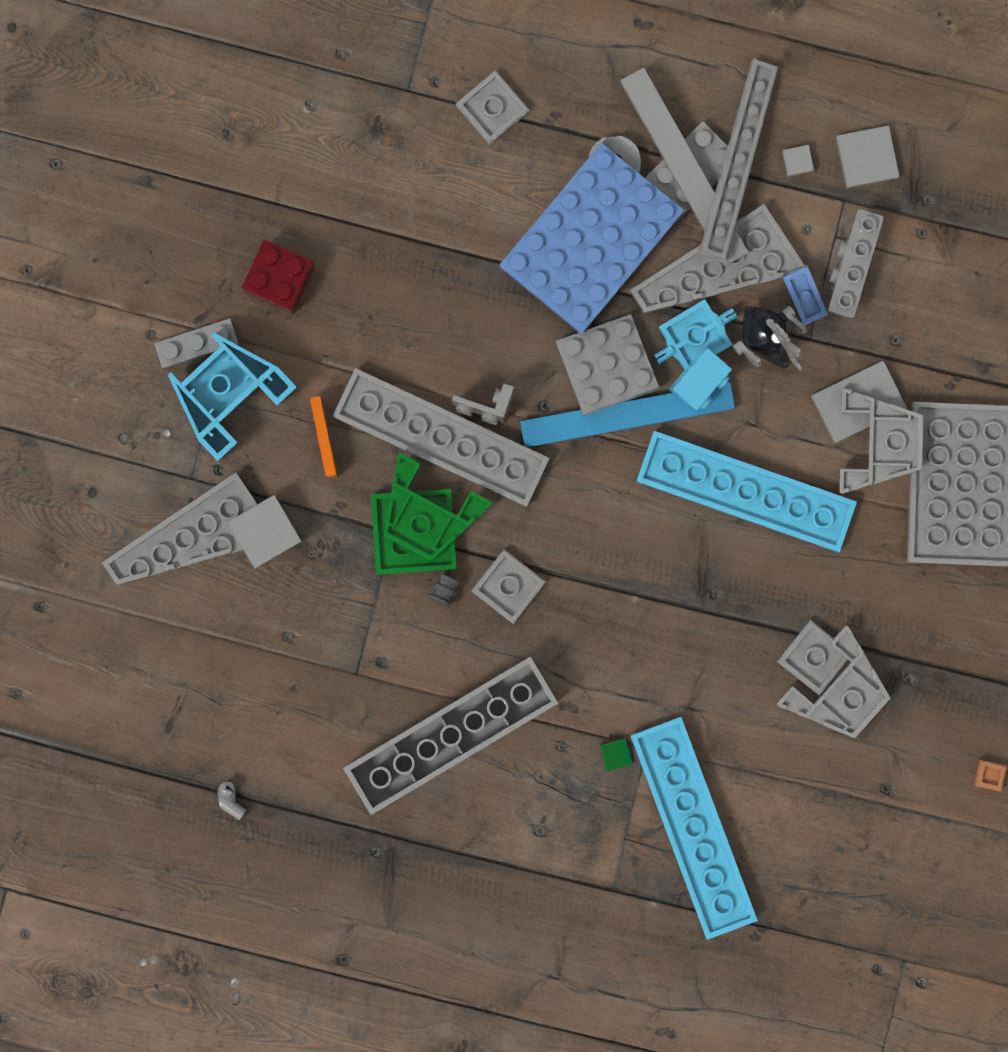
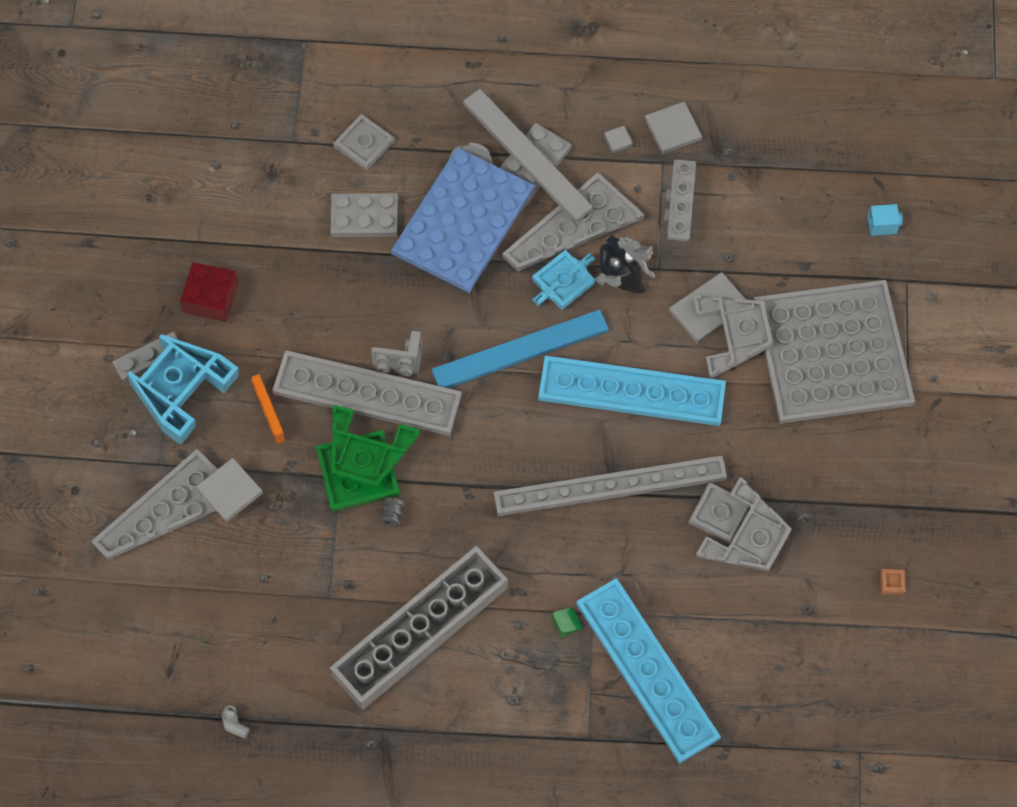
camera: 10 degrees left, 20 degrees down
(476, 206) = (364, 215): none -> light grey plate
(508, 586) = (446, 502): light grey tile -> none
(607, 365) = (495, 314): light grey plate -> none
(697, 604) = (610, 486): none -> light grey plate
(701, 380) = (574, 307): medium azure brick -> none
(738, 161) = (569, 144): light grey tile -> none
(805, 295) = (646, 231): medium blue plate -> none

